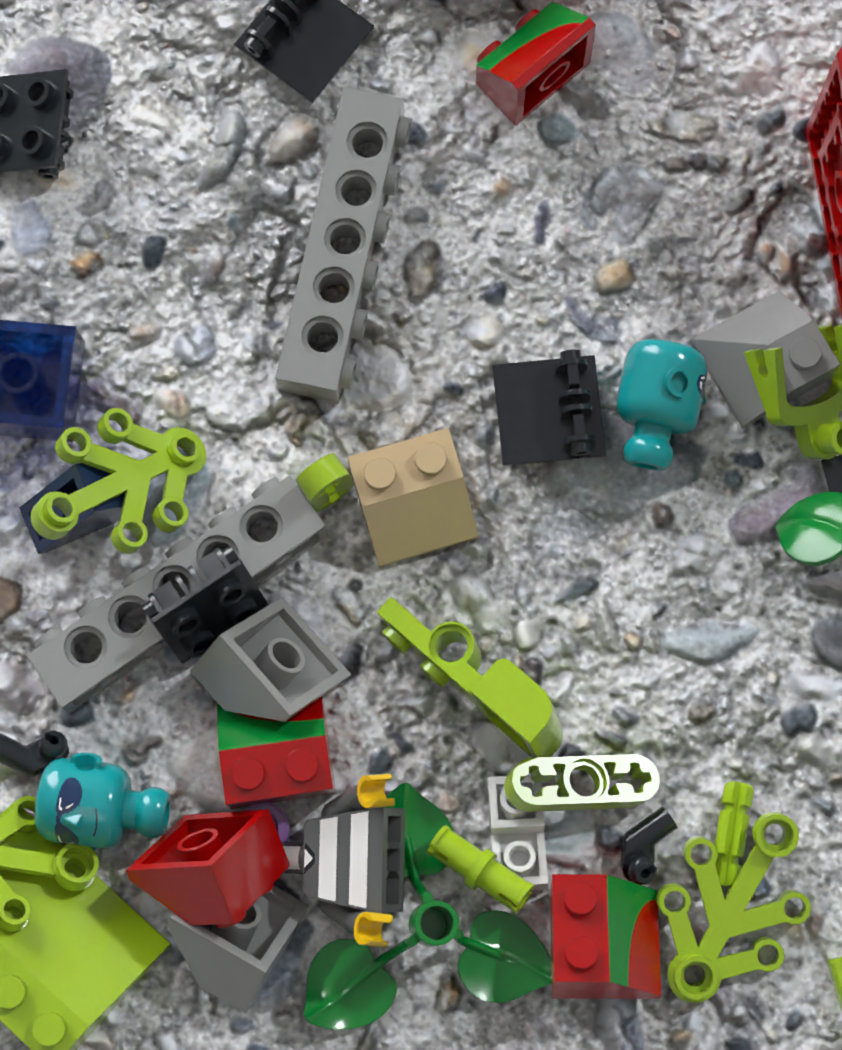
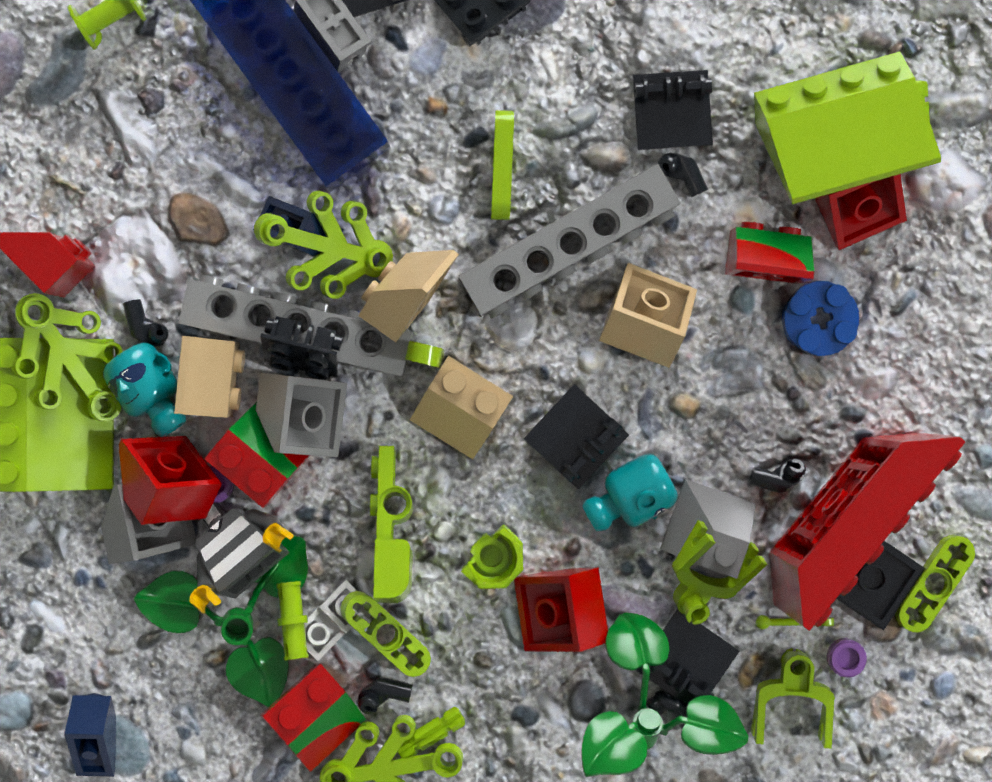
camera: 45 degrees right, 10 degrees up
(146, 727) = (209, 377): none -> tan slope
(205, 244) = (502, 165): none -> lime beam
(240, 442) = (405, 290): none -> tan slope
(376, 72) = (684, 169): none -> black arm
(490, 231) = (649, 315): none -> tan slope
(604, 598) = (495, 560): none -> lime hair
(641, 40) = (838, 331): none -> blue plate
(717, 579) = (561, 610): none -> red slope
(776, 242) = (781, 478): none -> black arm

